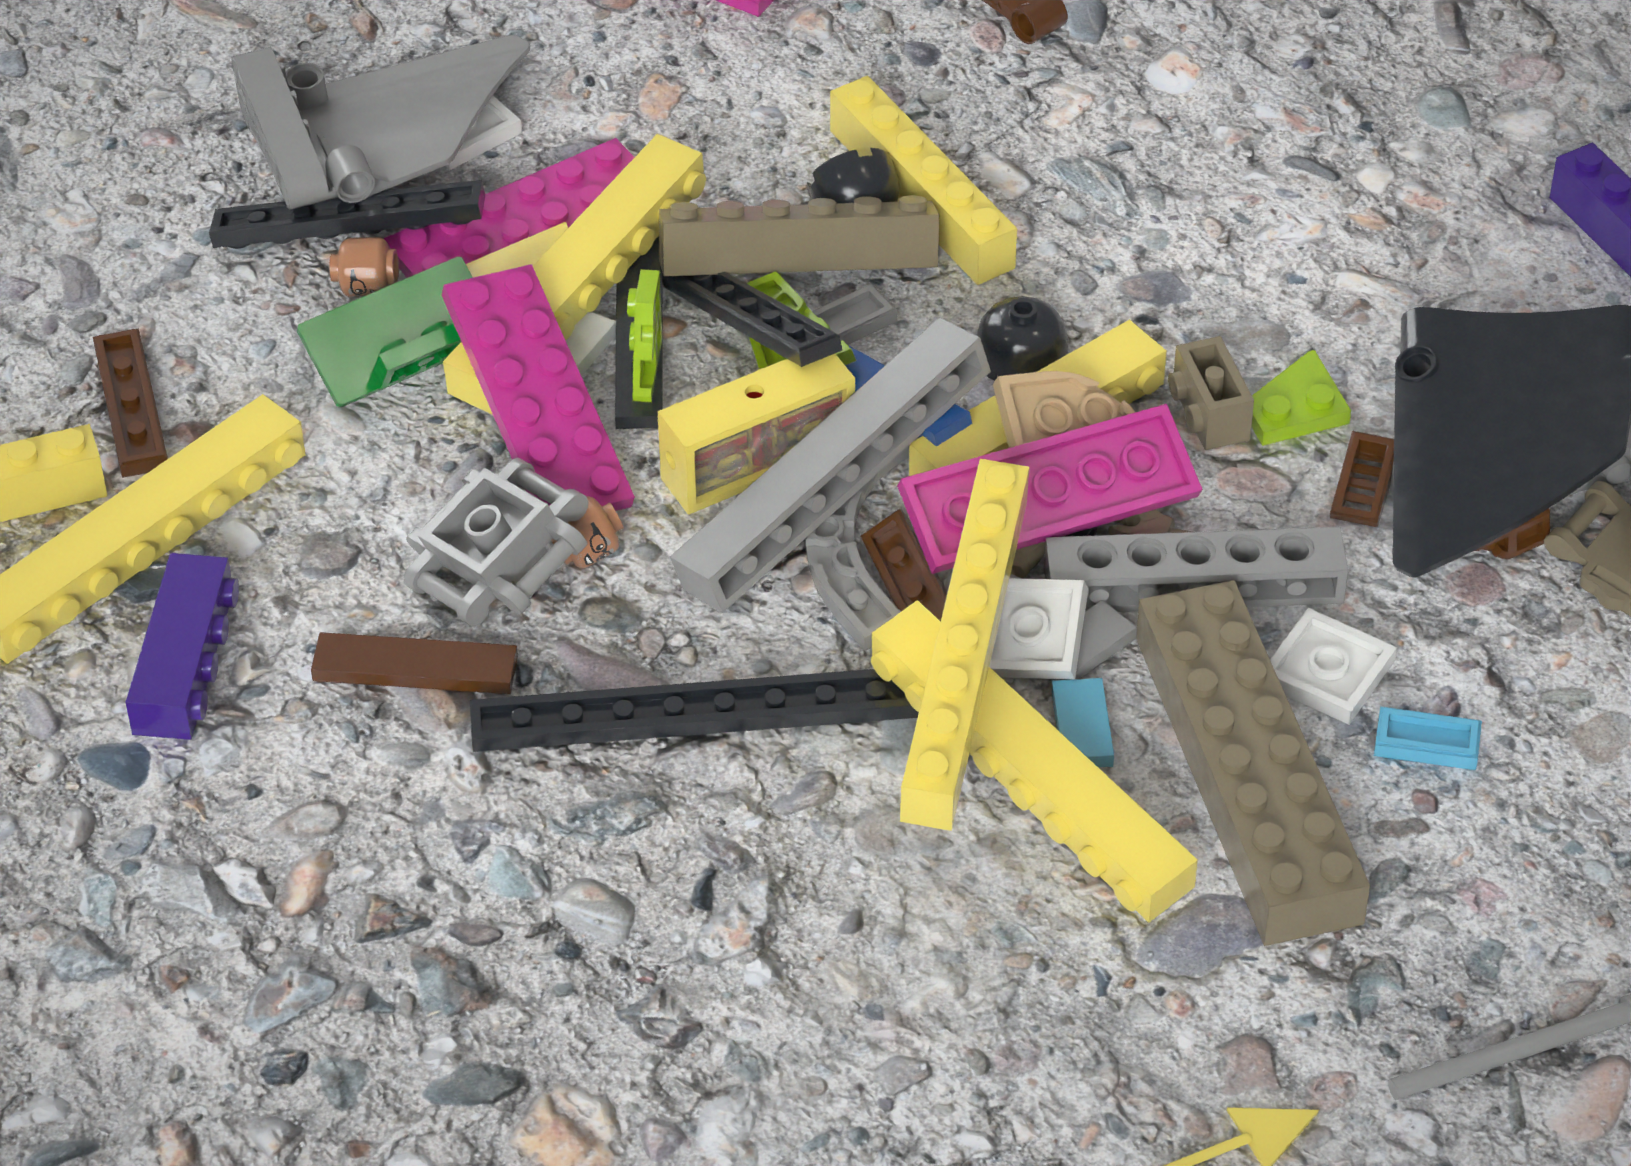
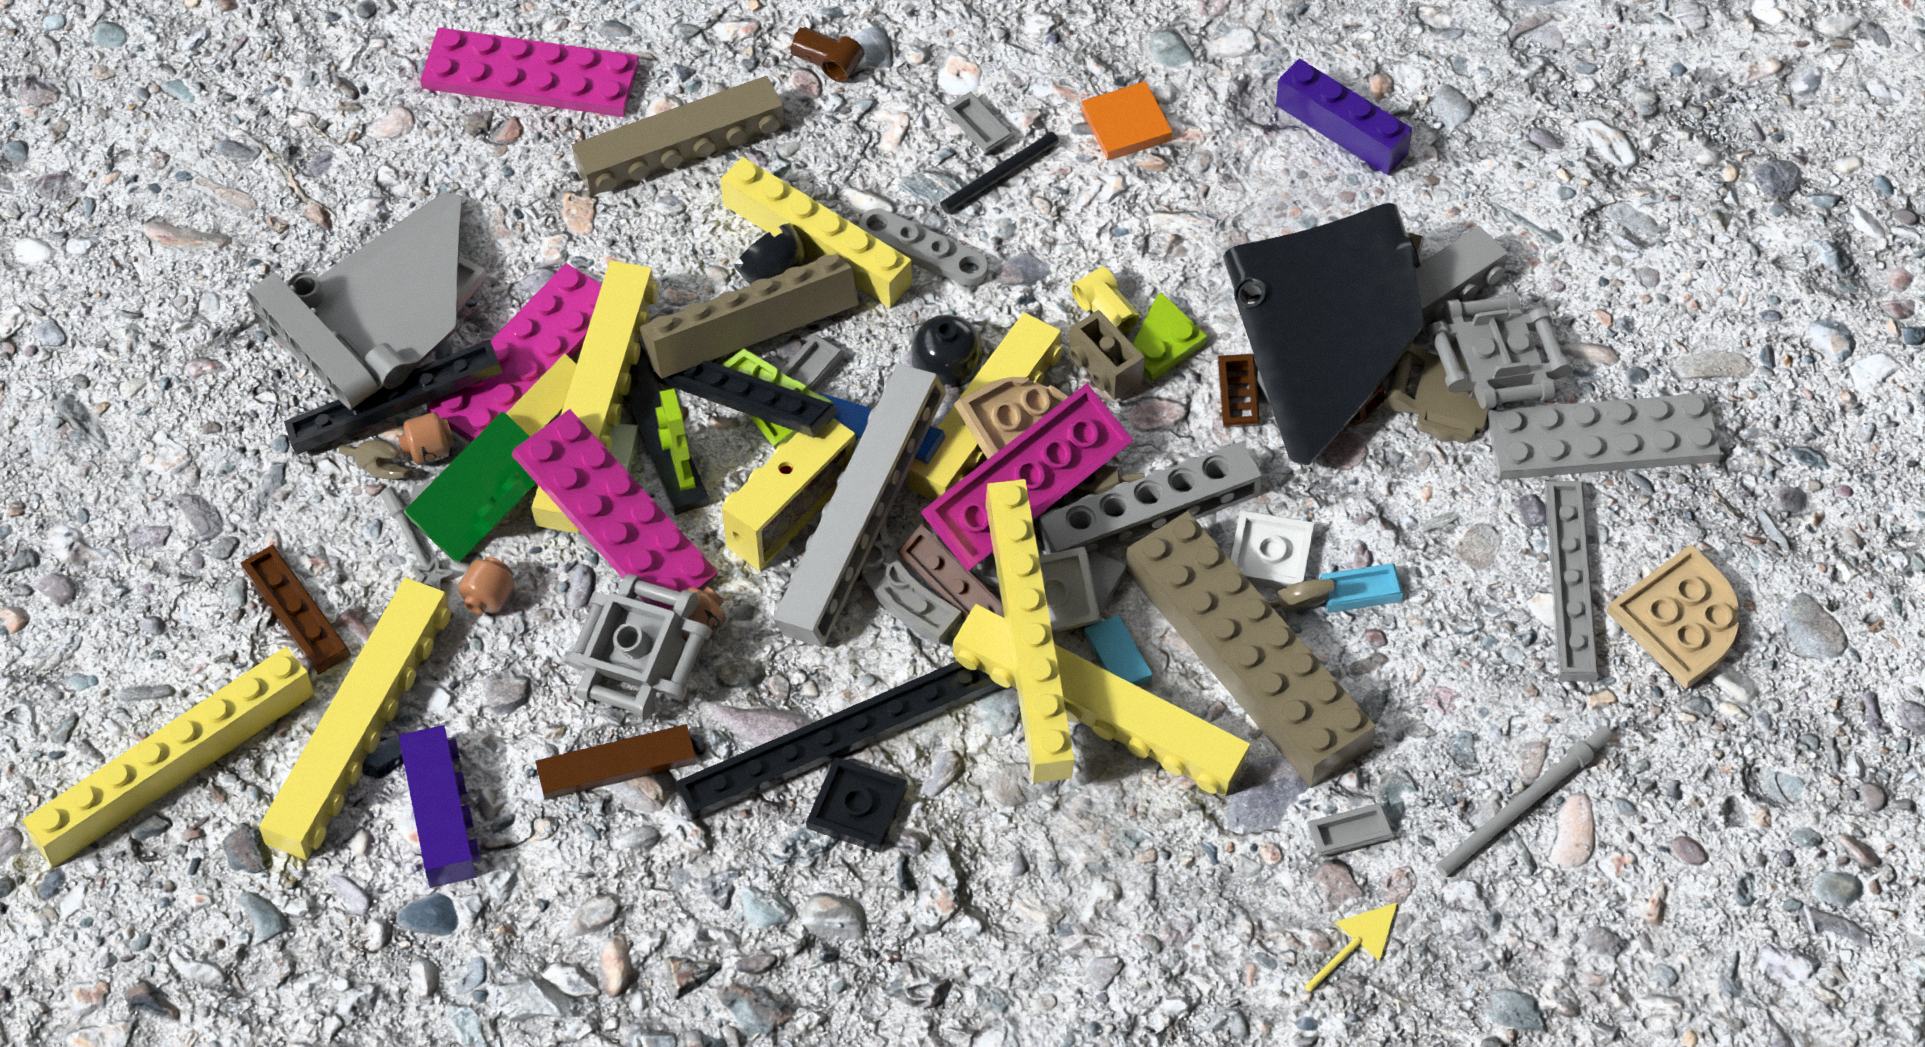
camera: 20 degrees left, 10 degrees up
(295, 272) = (373, 457): none -> dark tan hand
(302, 405) = (428, 573): none -> light grey piece
(354, 433) = (486, 586): none -> nougat head
(680, 793) = (857, 804): none -> black tile
(809, 44) = (678, 135): none -> dark tan brick
(1050, 233) = (926, 247): none -> light grey plate
(1172, 123) = (978, 122): none -> light grey tile
(1174, 179) = (999, 172): none -> black bar
(1242, 333) = (1101, 292): none -> light yellow piece
(1292, 1006) = (1350, 829): none -> light grey tile
(1345, 721) = (1303, 595): none -> dark tan hand
(1354, 165) = (1126, 120): none -> orange tile

